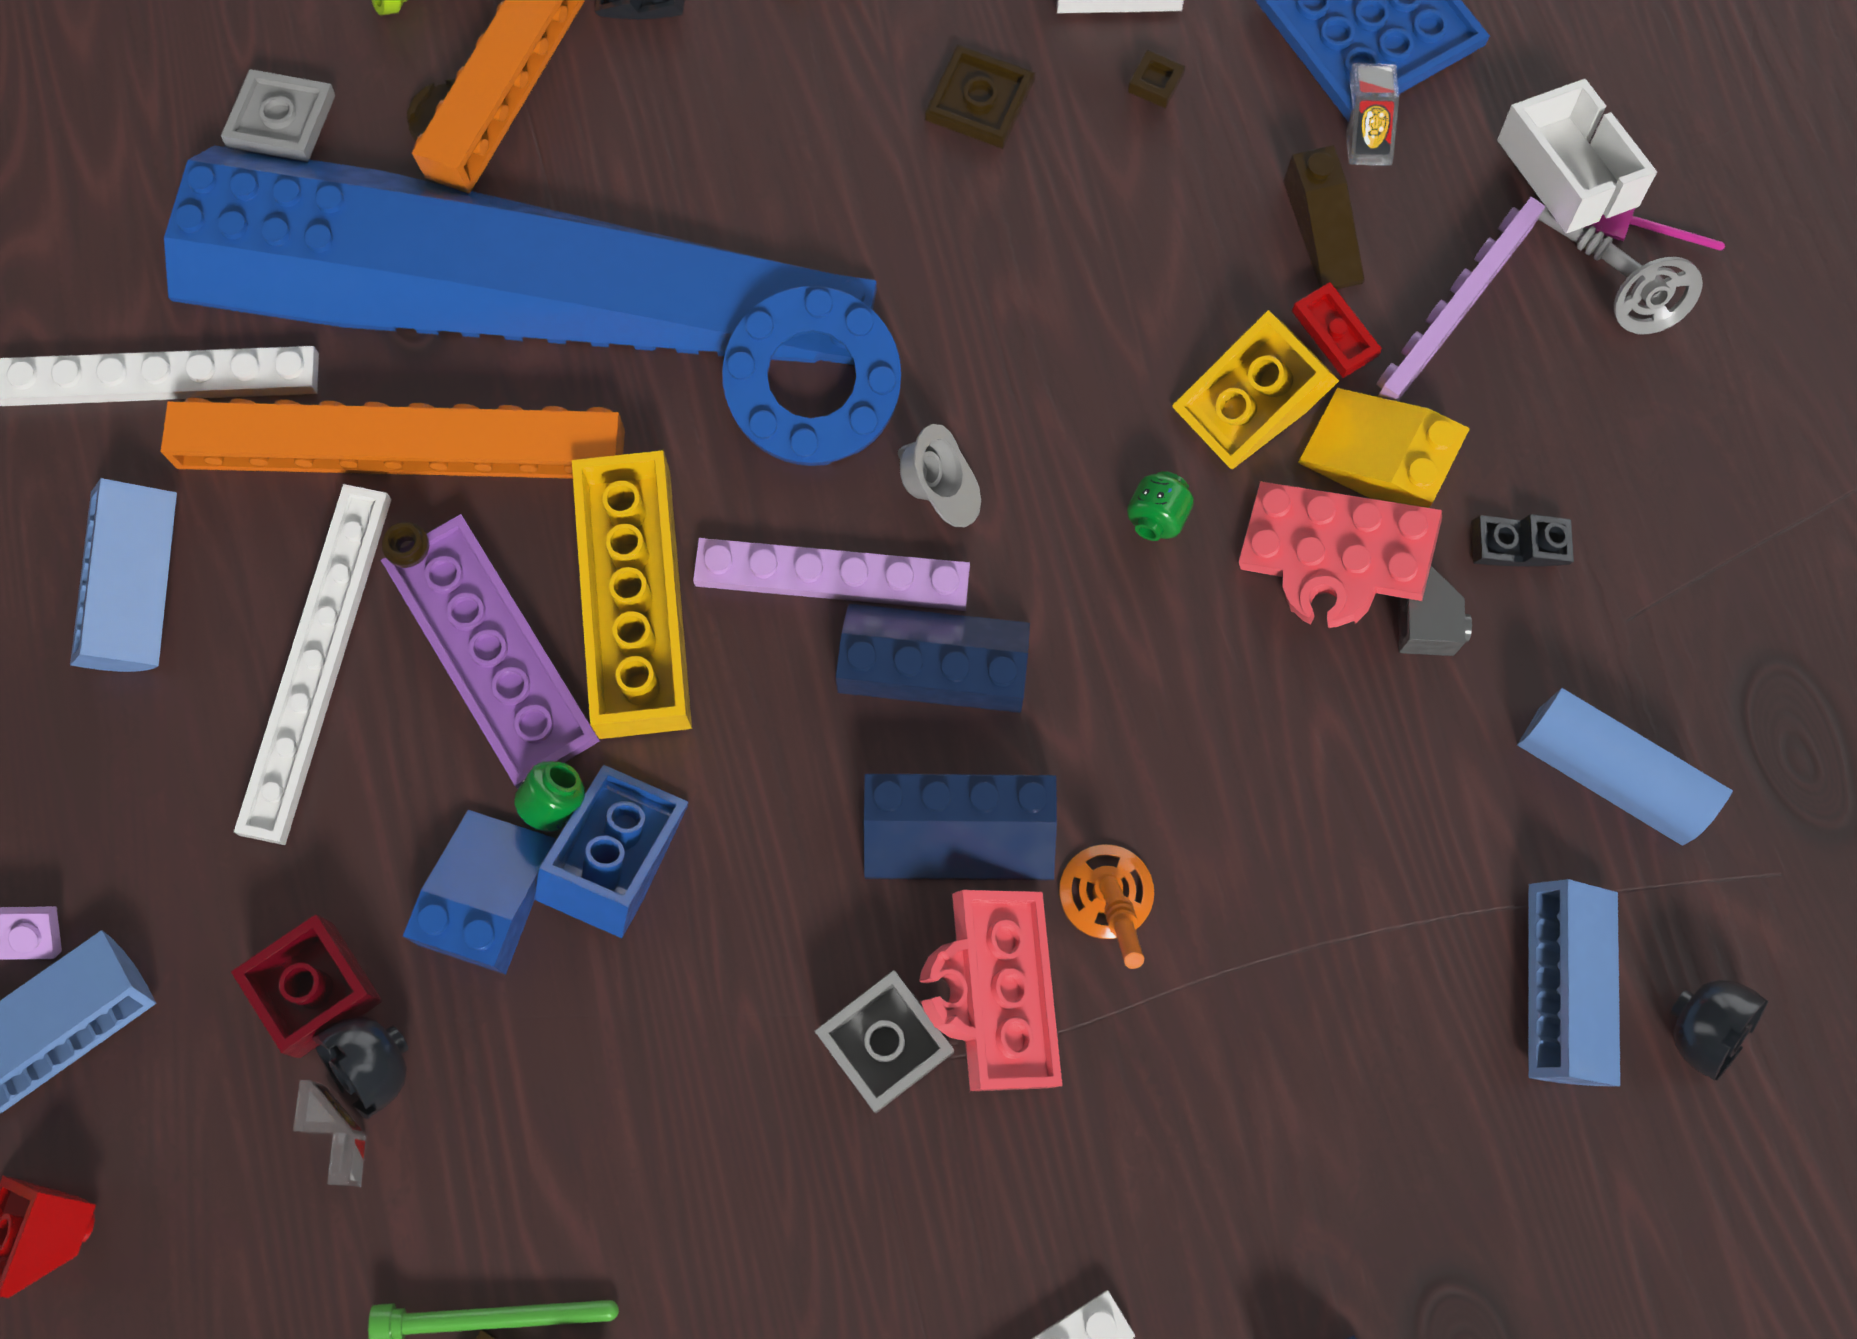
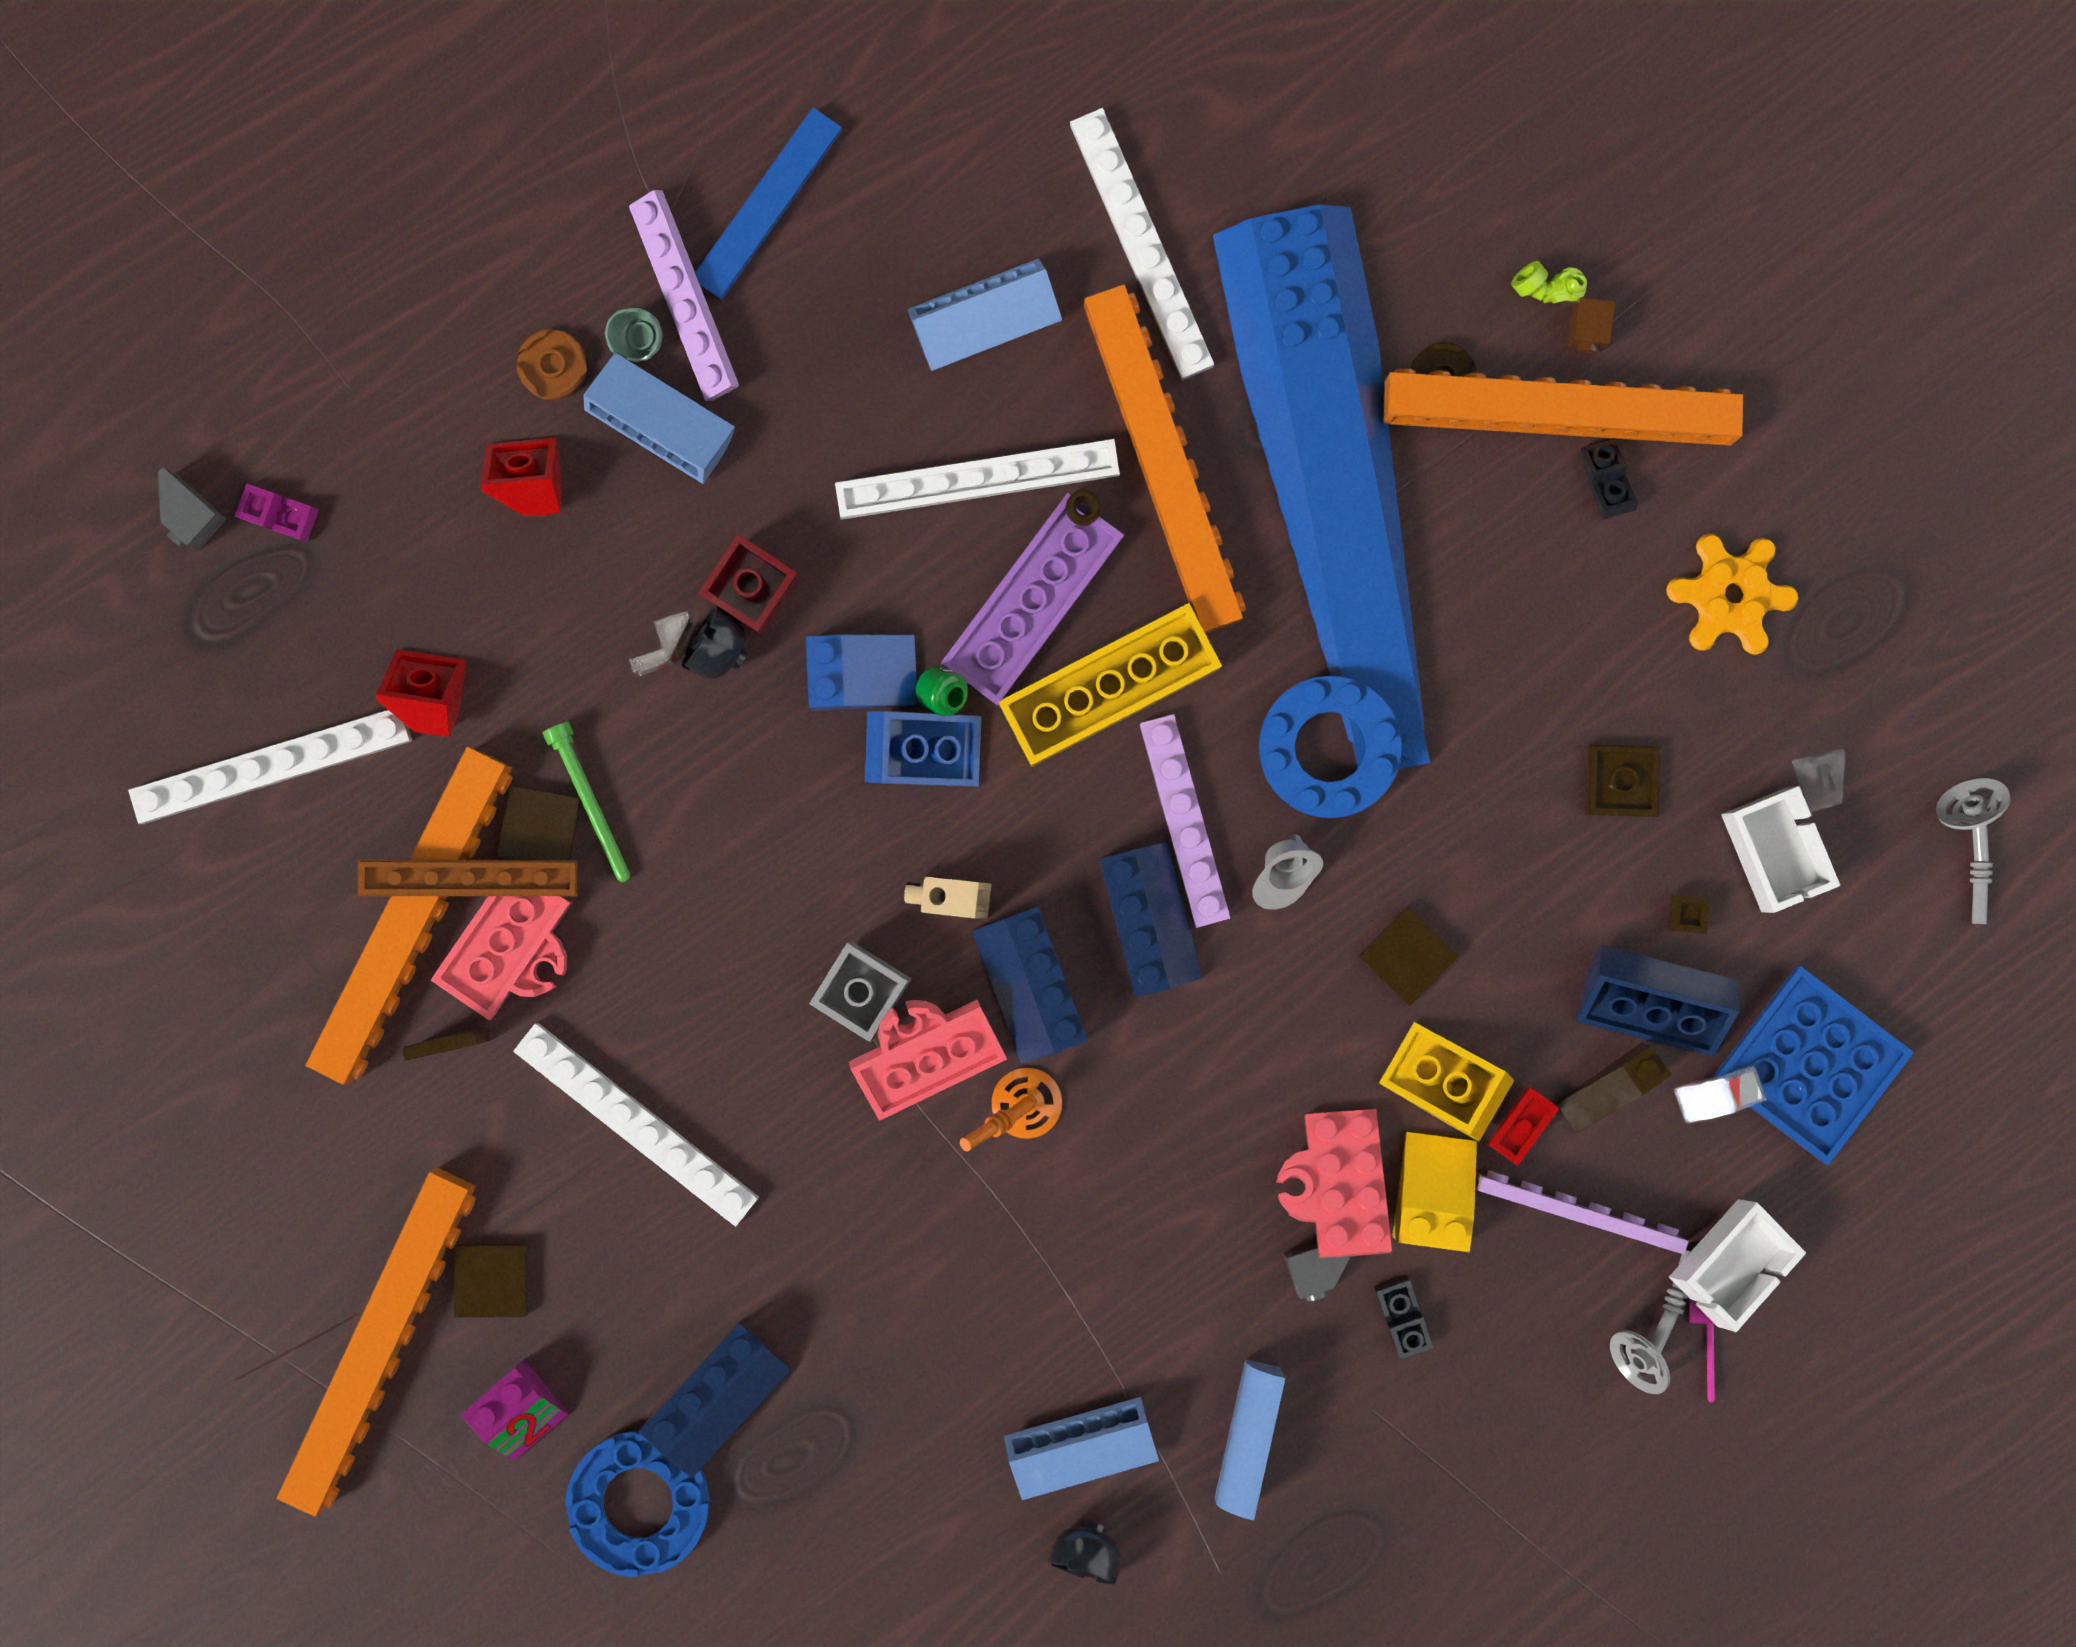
camera: 70 degrees right, 15 degrees up
(278, 115) = (1391, 247): light grey plate -> none
(825, 868) = (962, 897): none -> tan torso
(1091, 384) = (1408, 956): none -> dark brown tile
(1160, 506) = (1325, 1042): green head -> none
(1242, 140) = (1658, 1001): none -> dark blue slope

